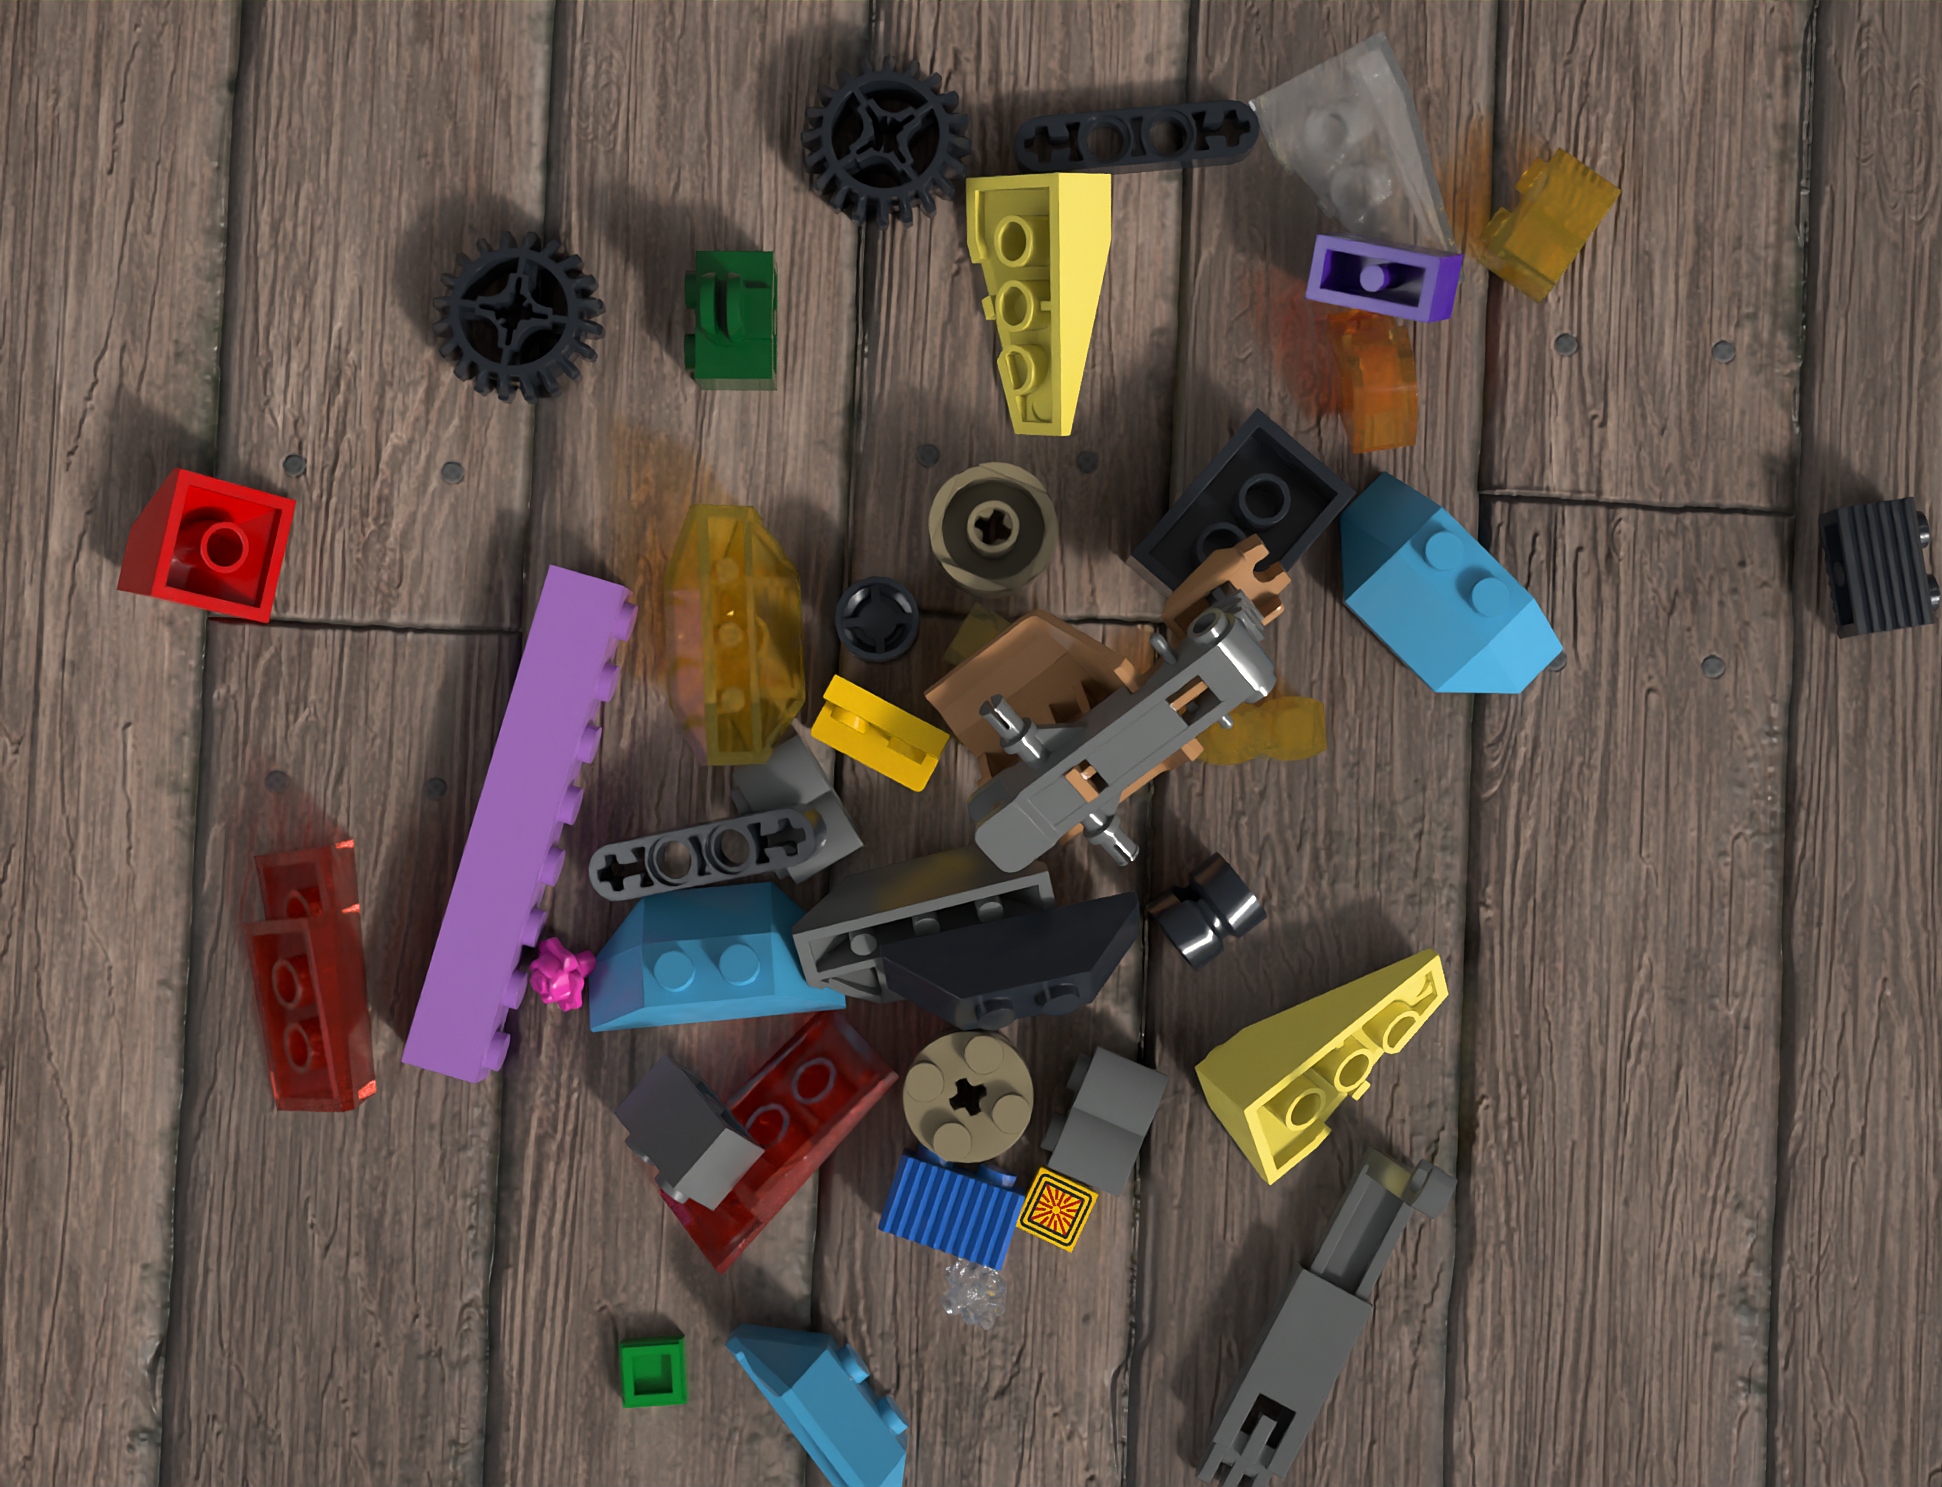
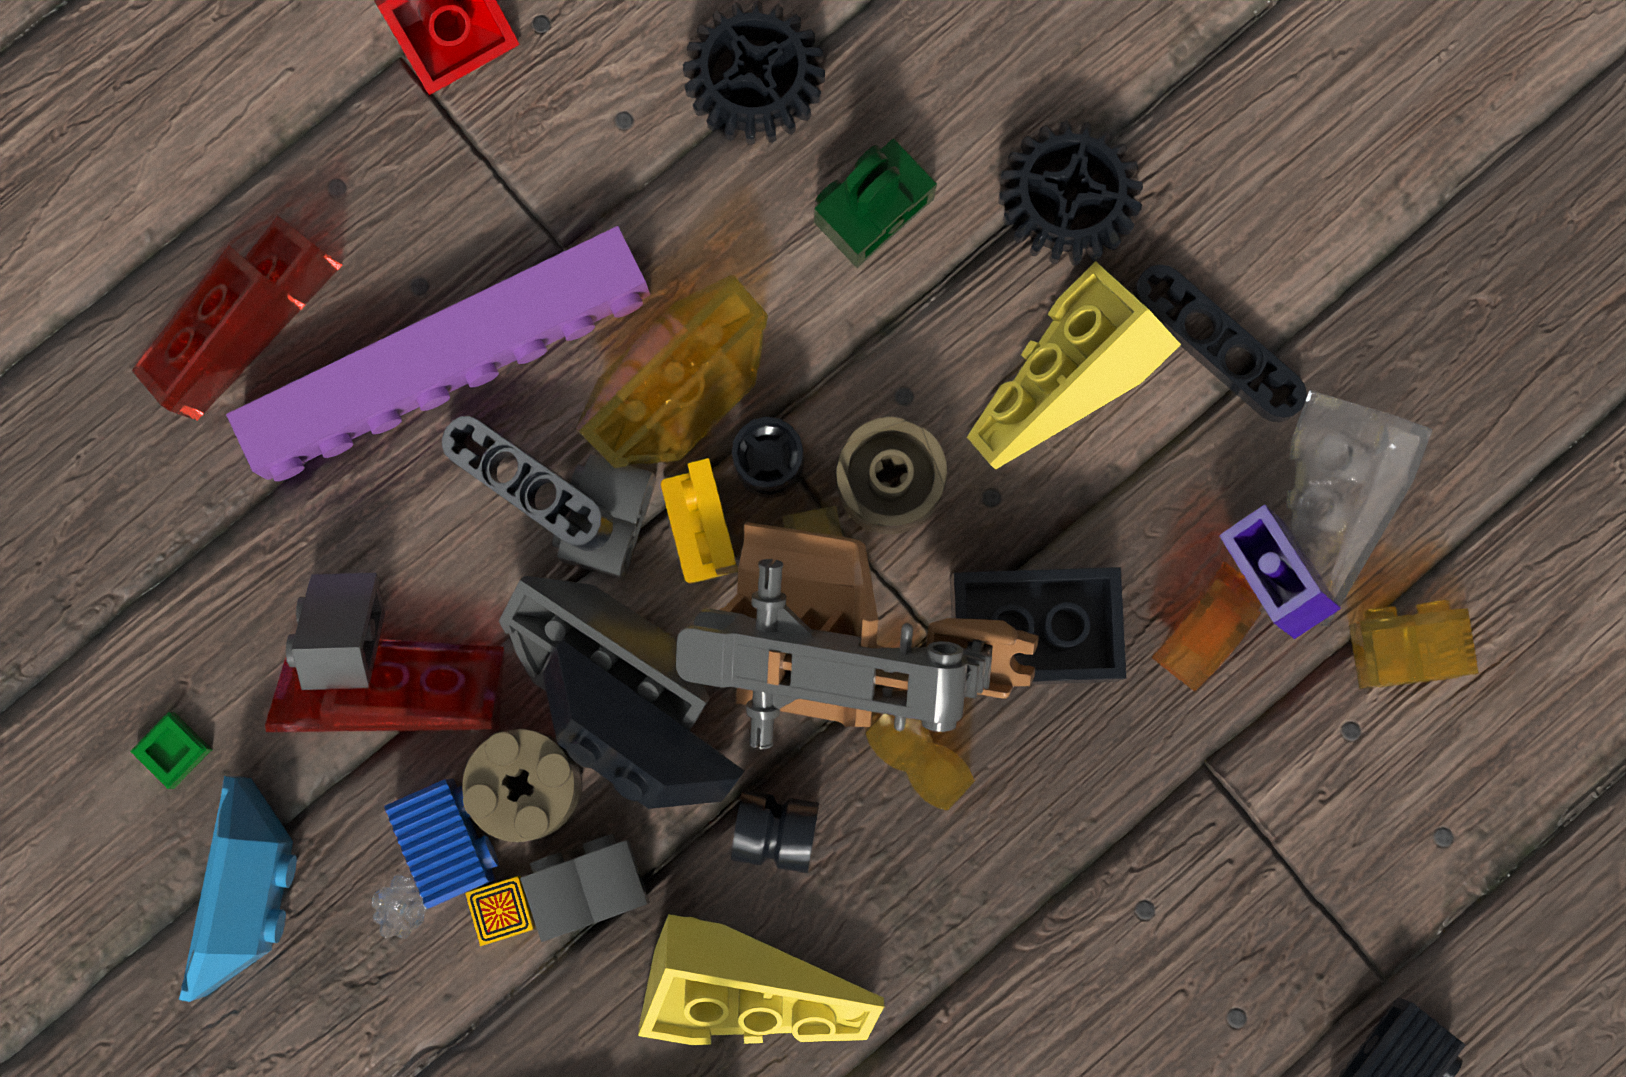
camera: 55 degrees right, 5 degrees down
(560, 974) = (370, 463): dark pink plant -> none
(704, 961) = (457, 544): dark azure wedge -> none
(1438, 595) = (1113, 797): dark azure wedge -> none

